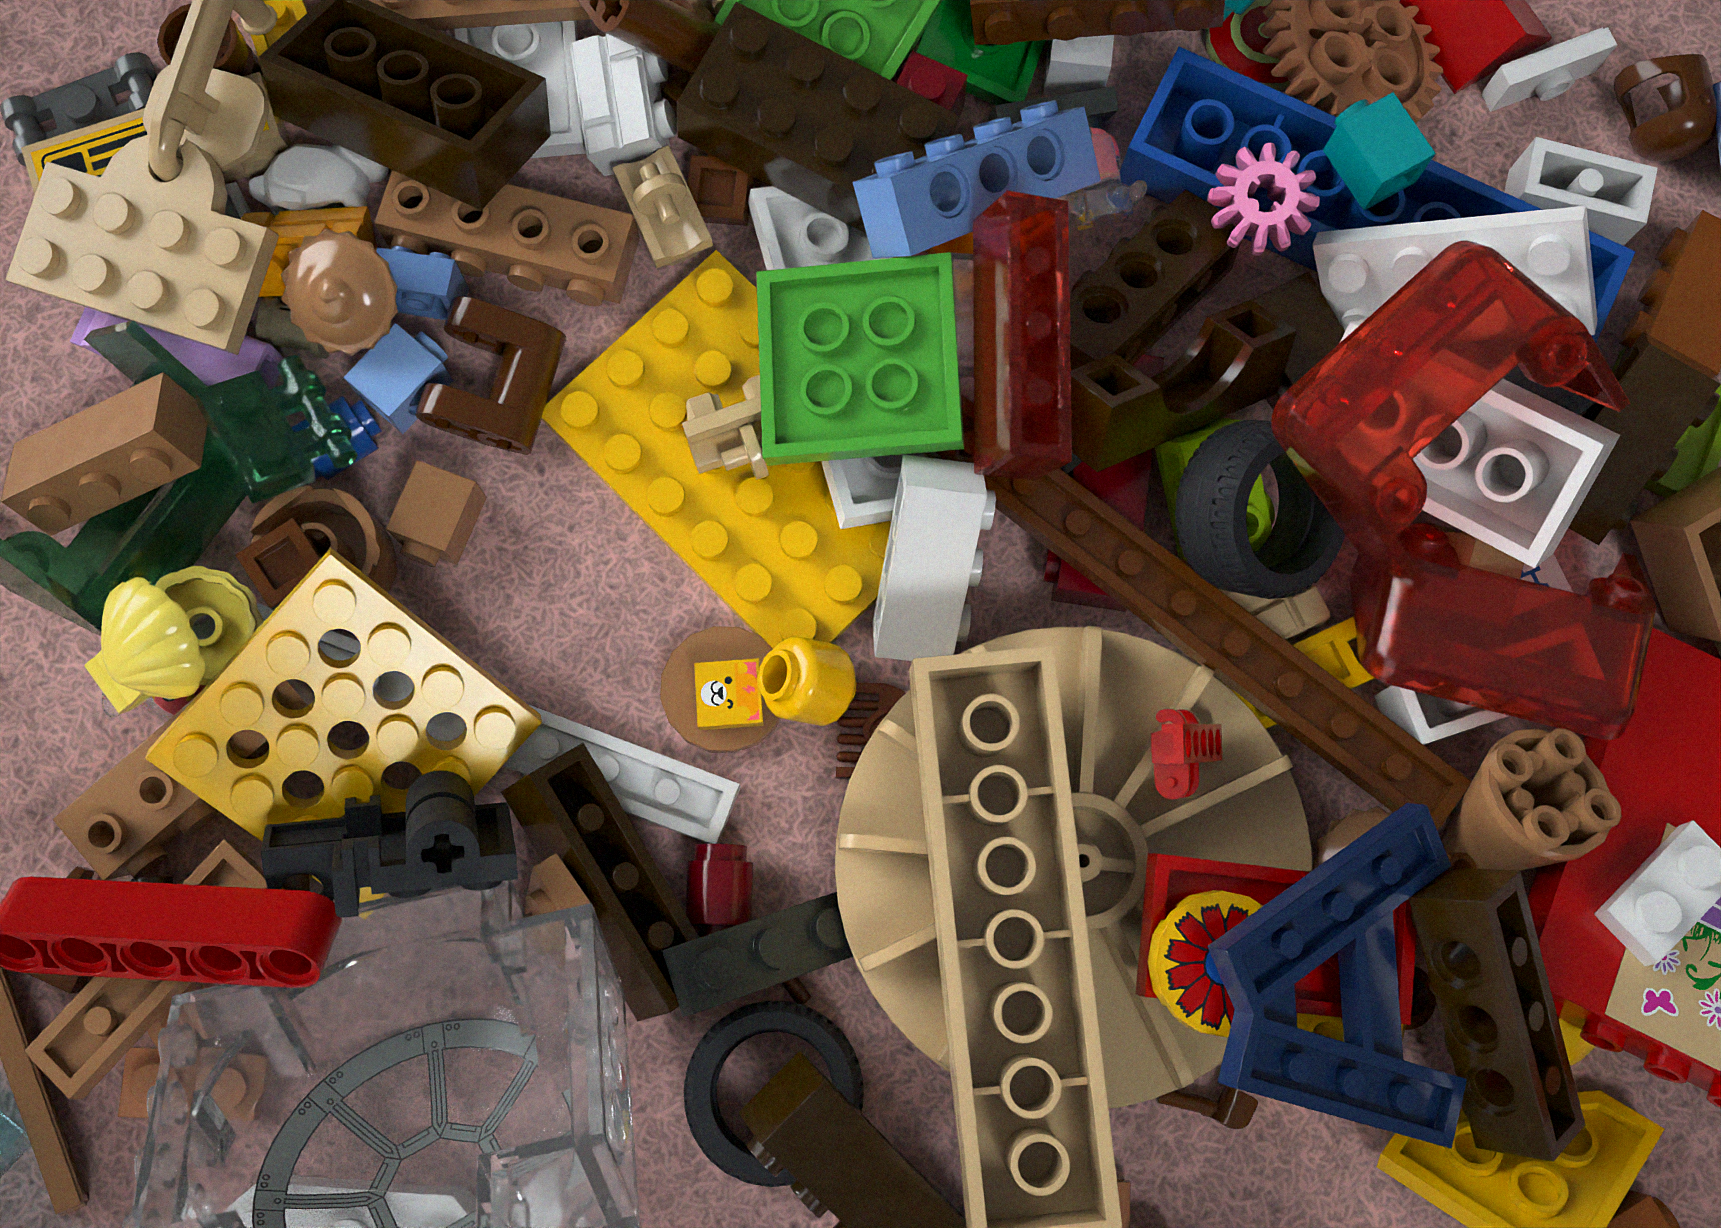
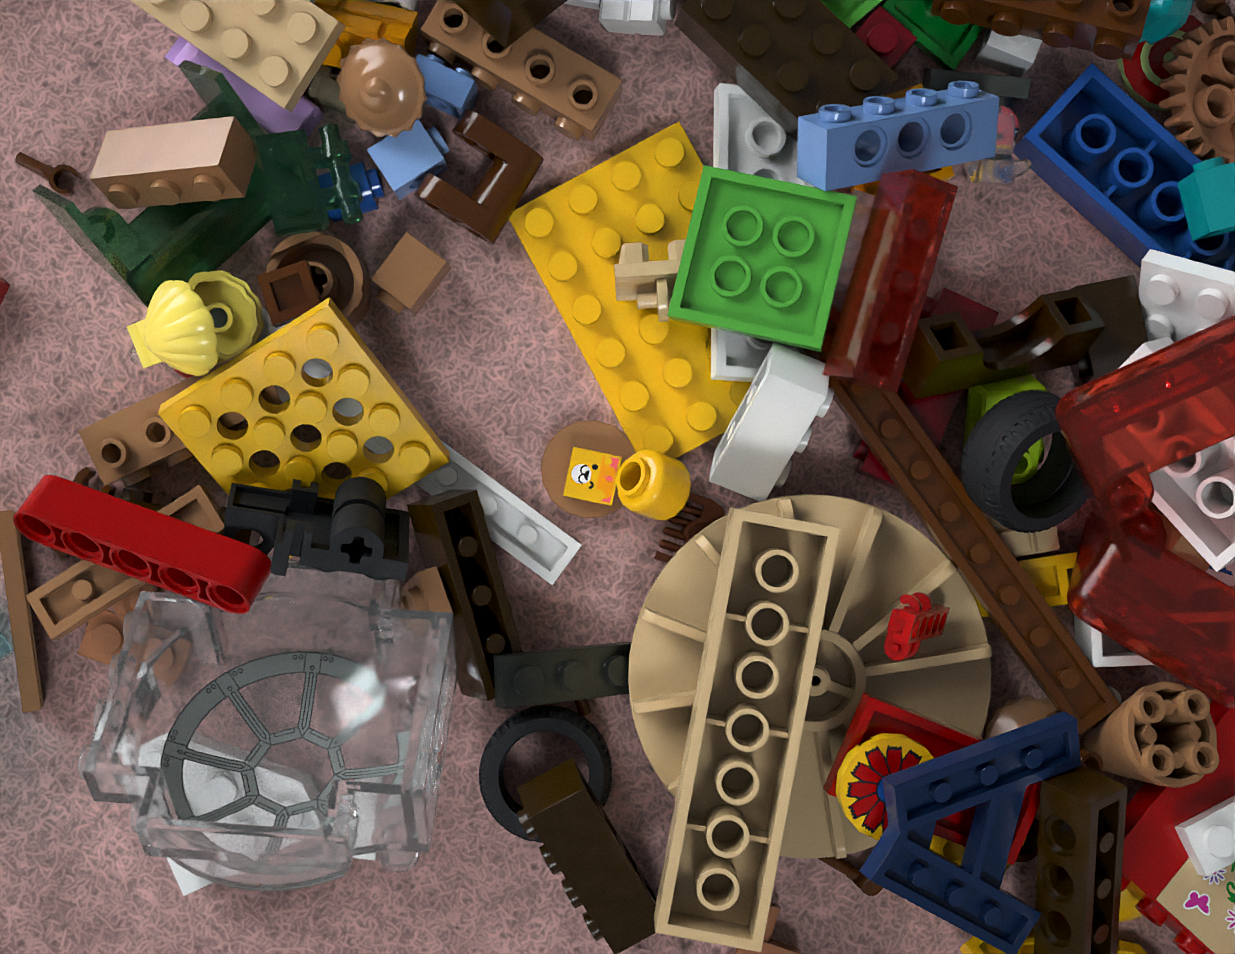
camera: 15 degrees right, 10 degrees up
(663, 208) = (647, 76): tan hips -> none
(719, 887) = (545, 617): dark red brick -> none
(720, 190) = (692, 74): reddish brown plate -> none
(1149, 282) = (1024, 241): dark brown brick -> none
(1281, 186) = (1131, 205): bright pink gear -> none

